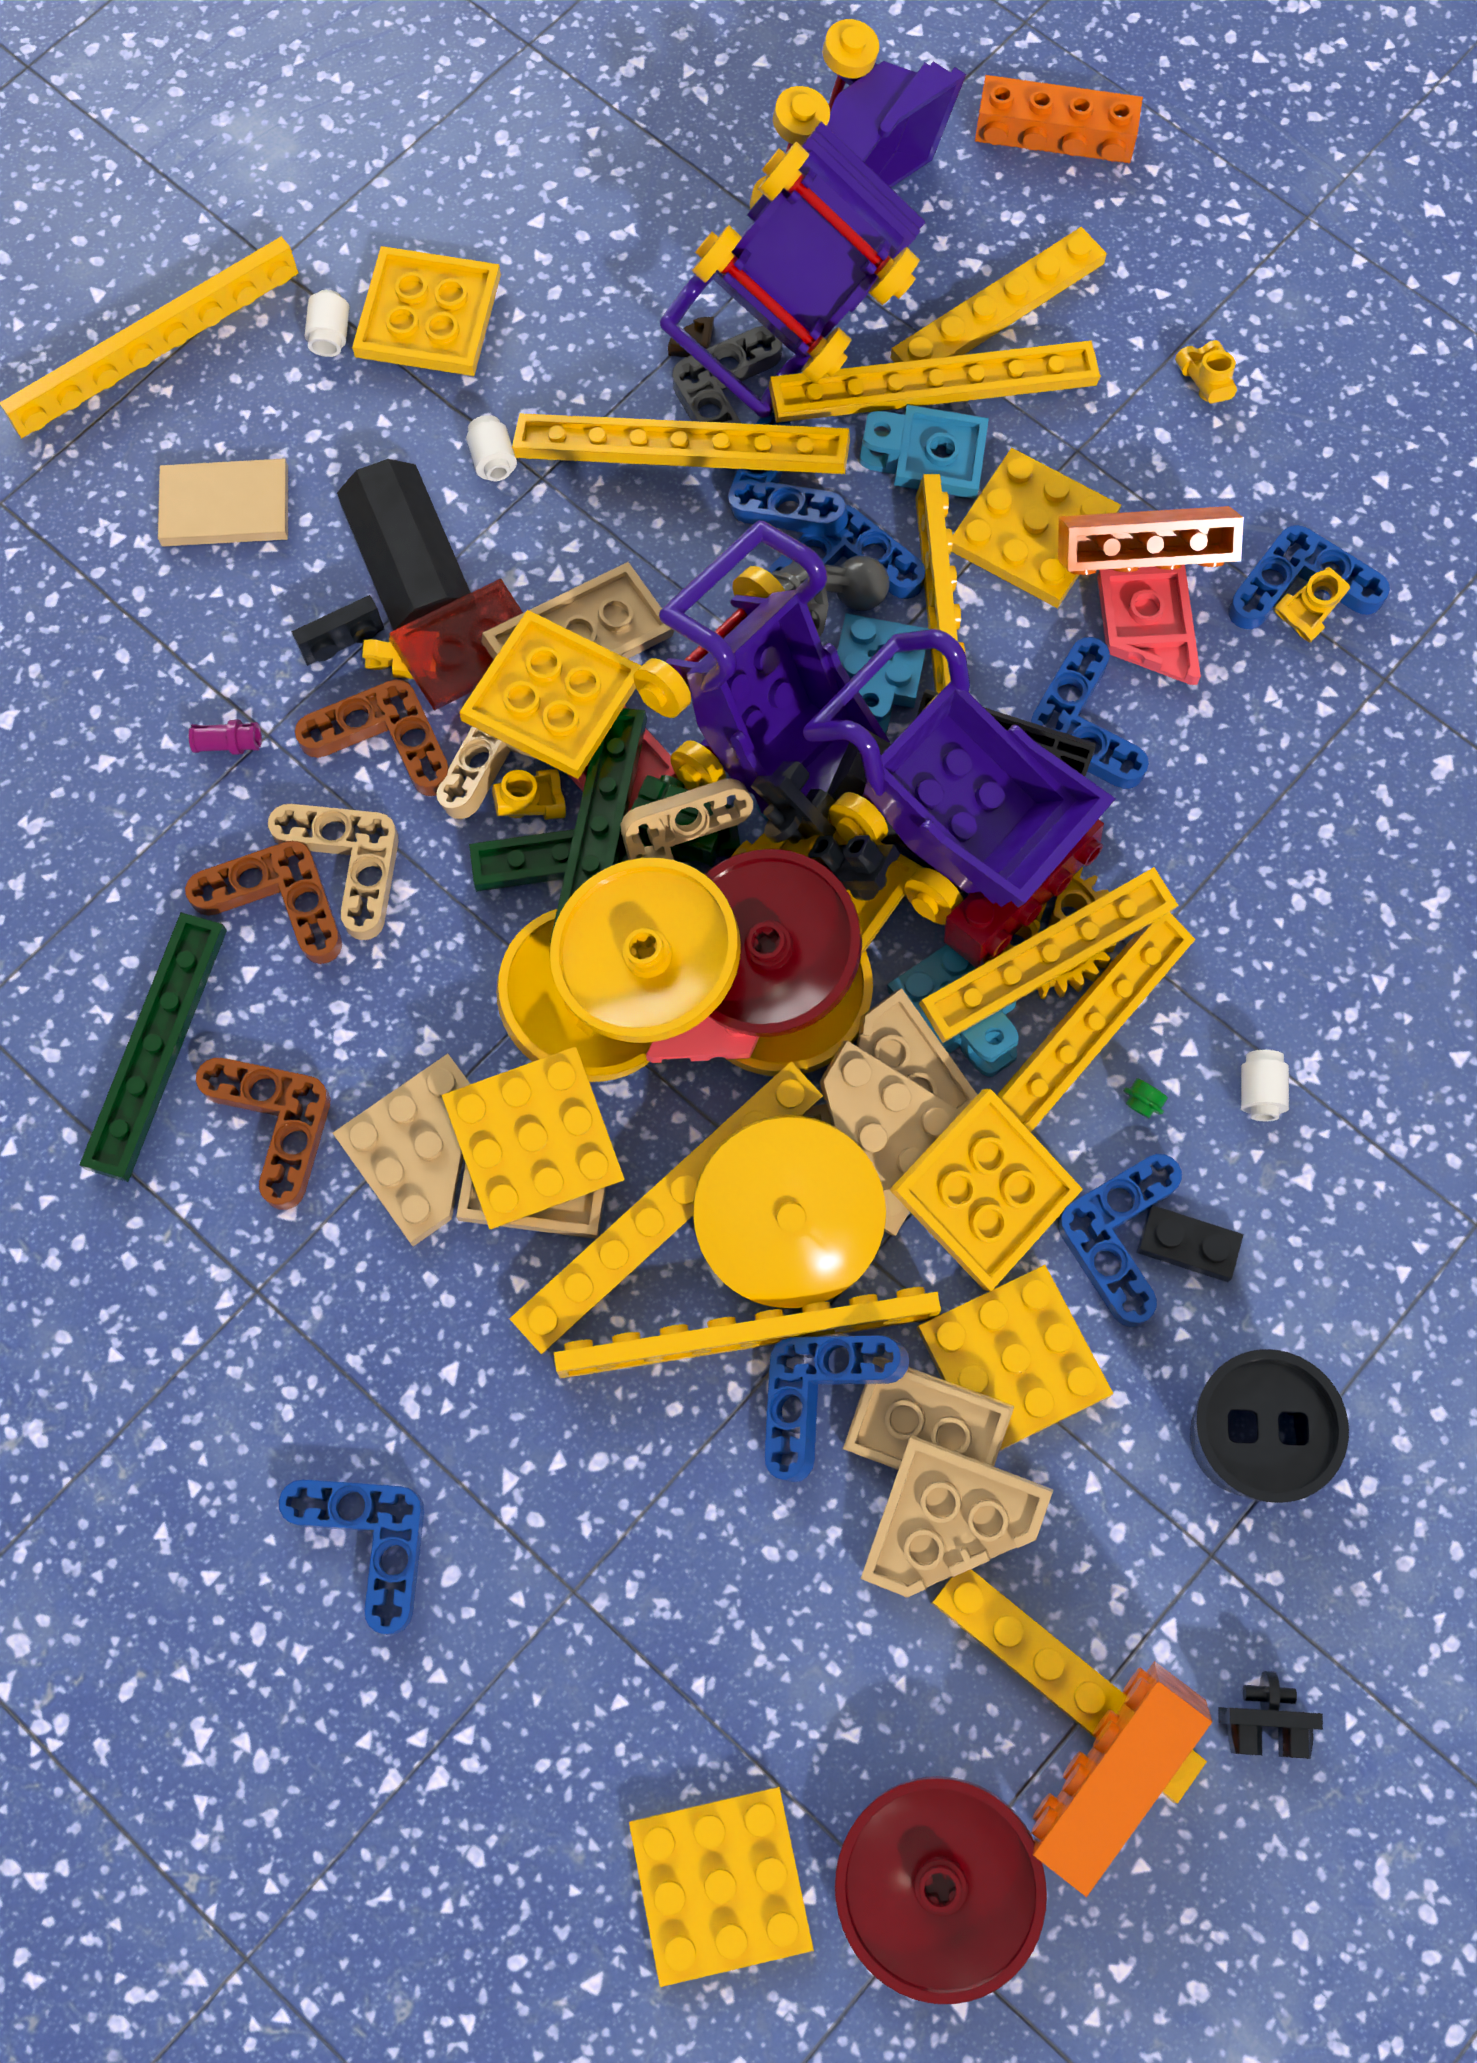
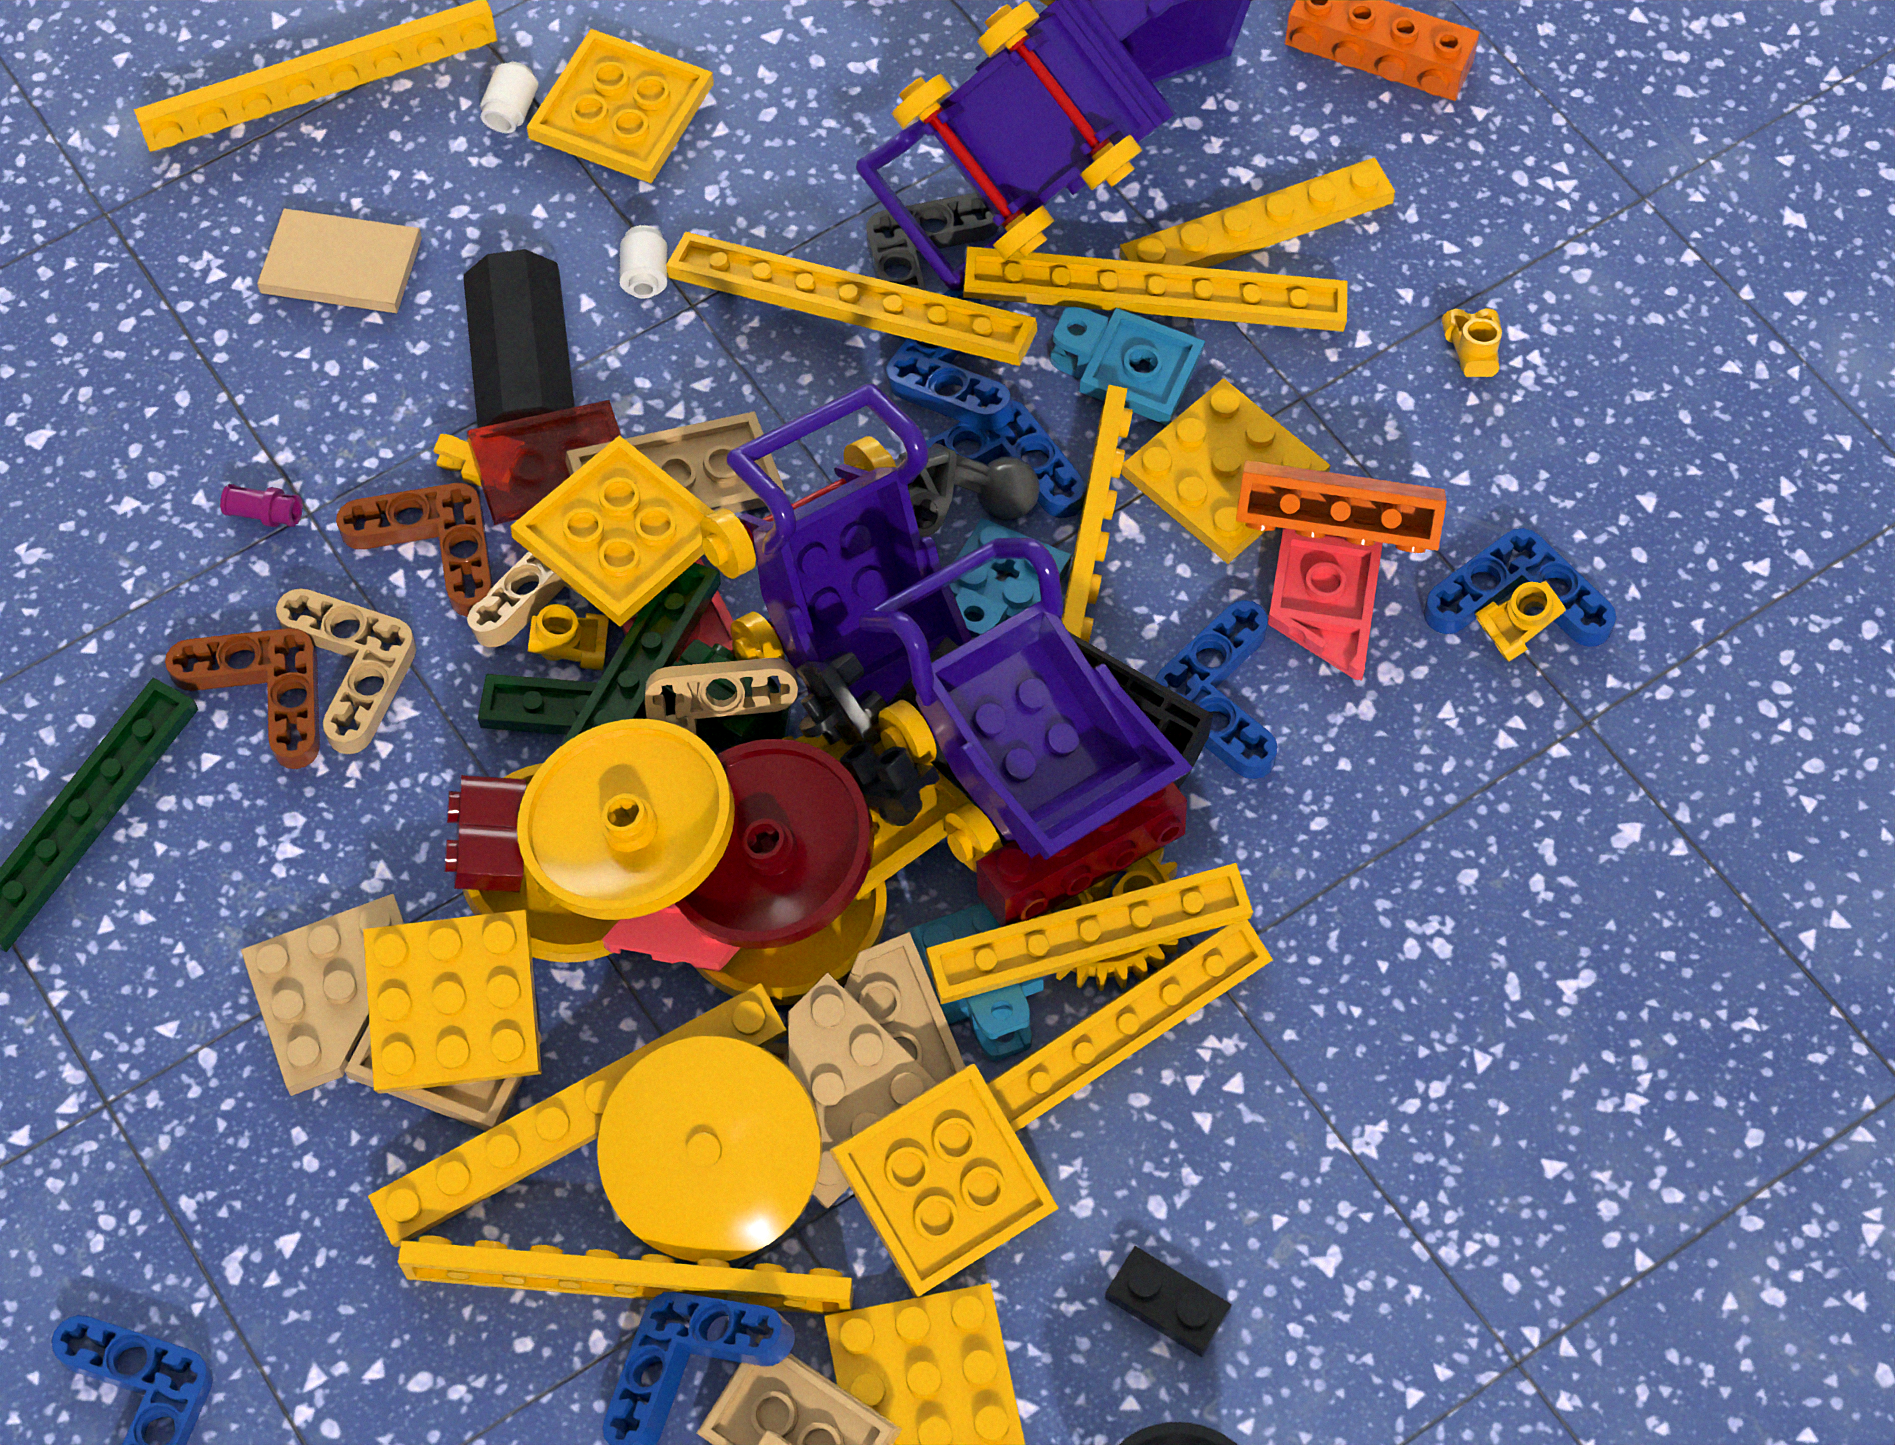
camera: 15 degrees right, 10 degrees down
(281, 1104) = (198, 909): dark orange beam -> none
(338, 630) = (417, 418): black plate -> none
(524, 987) = (486, 834): none -> dark red brick
(700, 330) = (910, 188): dark brown tile -> none
(1105, 1221) = (1079, 1252): blue beam -> none
(1145, 1098) = (1162, 1125): green plate -> none
(1265, 1085) = (1305, 1141): white brick -> none

